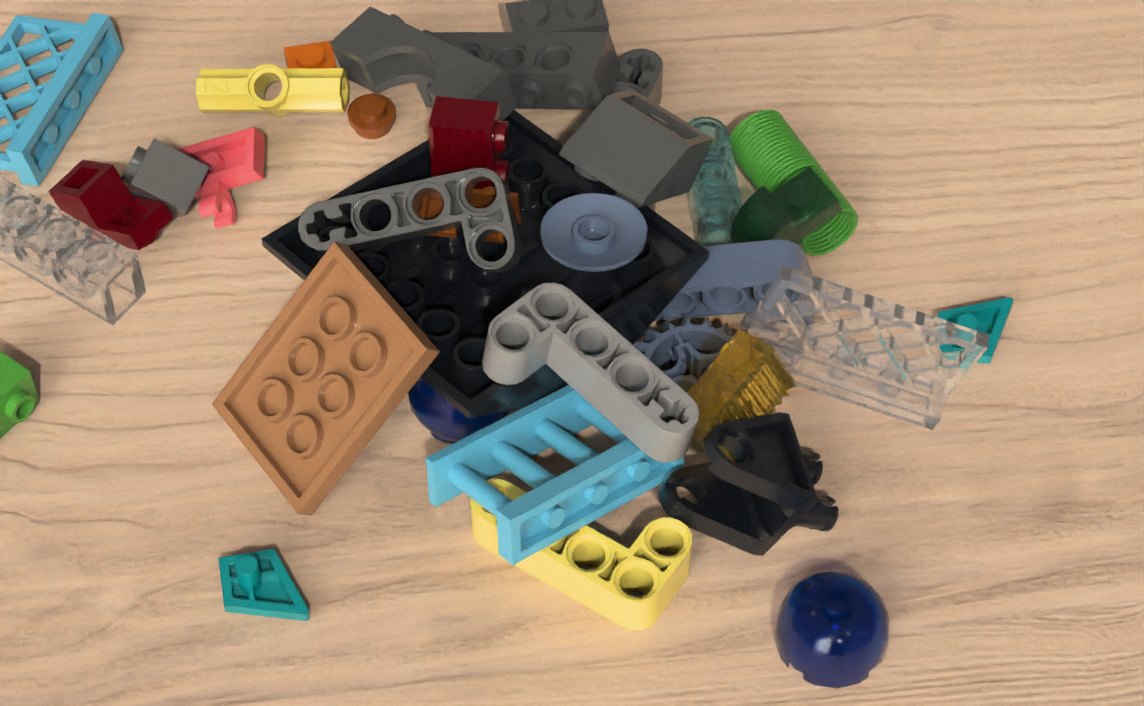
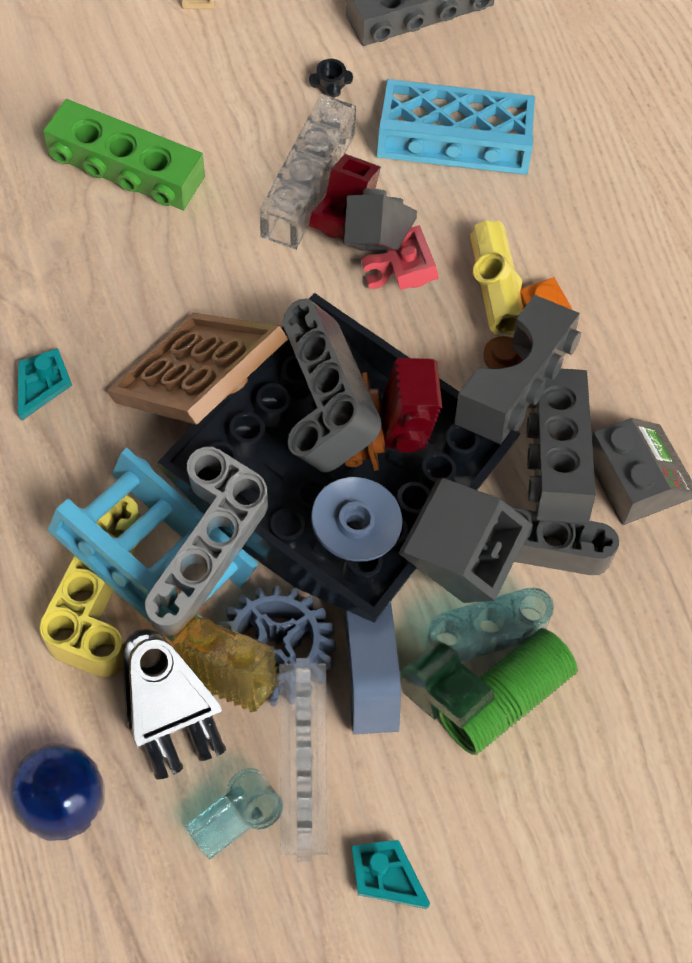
camera: 75 degrees right, 10 degrees up
(884, 436) = (247, 805): none -> clear light blue piece

